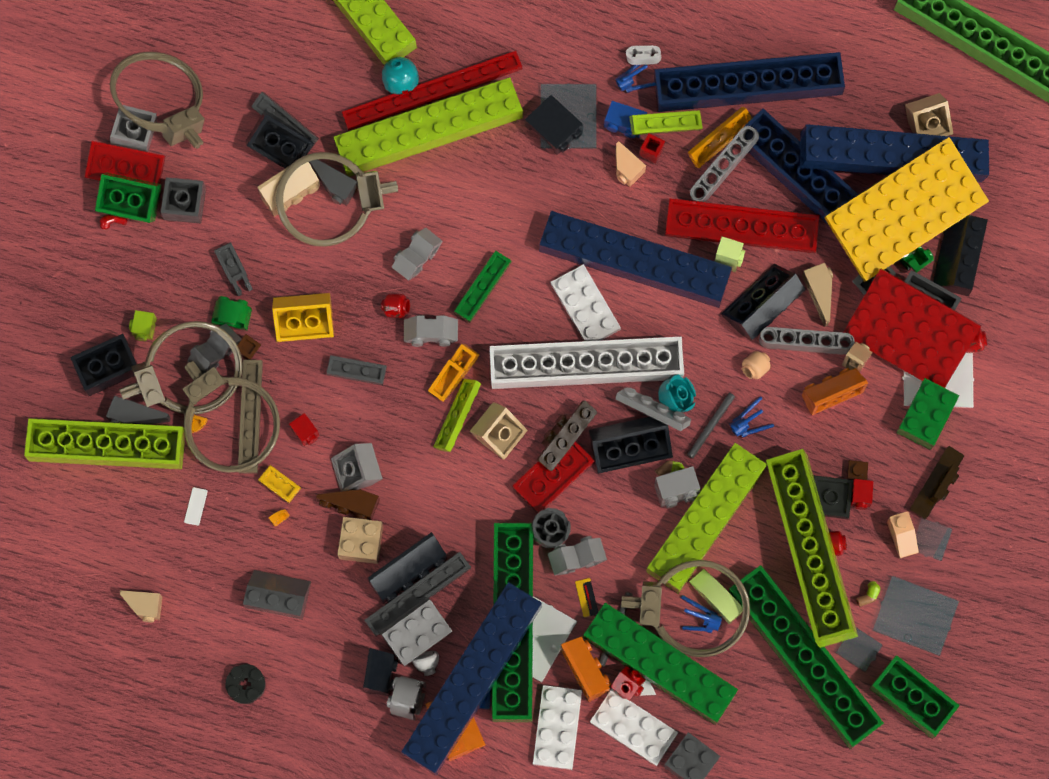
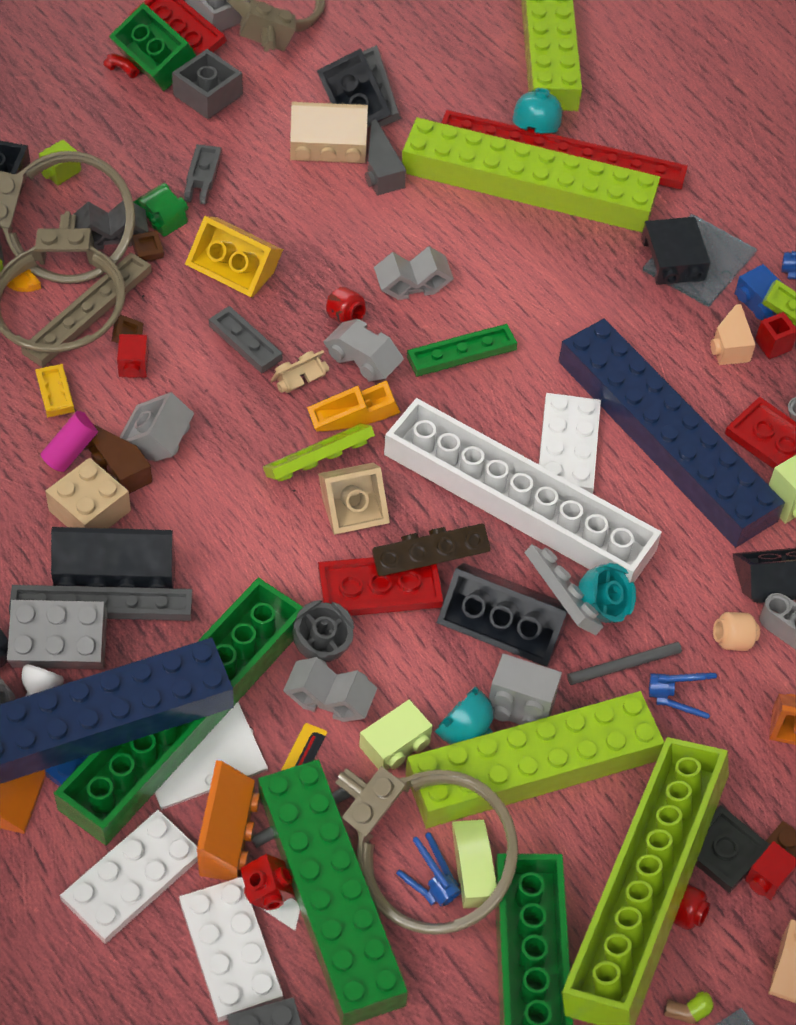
camera: 30 degrees right, 20 degrees down
(279, 517) = (21, 420): light orange tile -> none
(287, 415) = (126, 325): none -> reddish brown plate
(320, 513) = (69, 442): none -> dark pink brick
(369, 191) = (412, 187): dark tan brick -> none
(406, 362) = (290, 375): none -> tan hinge
(629, 556) = (396, 736): none -> yellowish green brick
(658, 522) = (467, 719): none -> teal cylinder

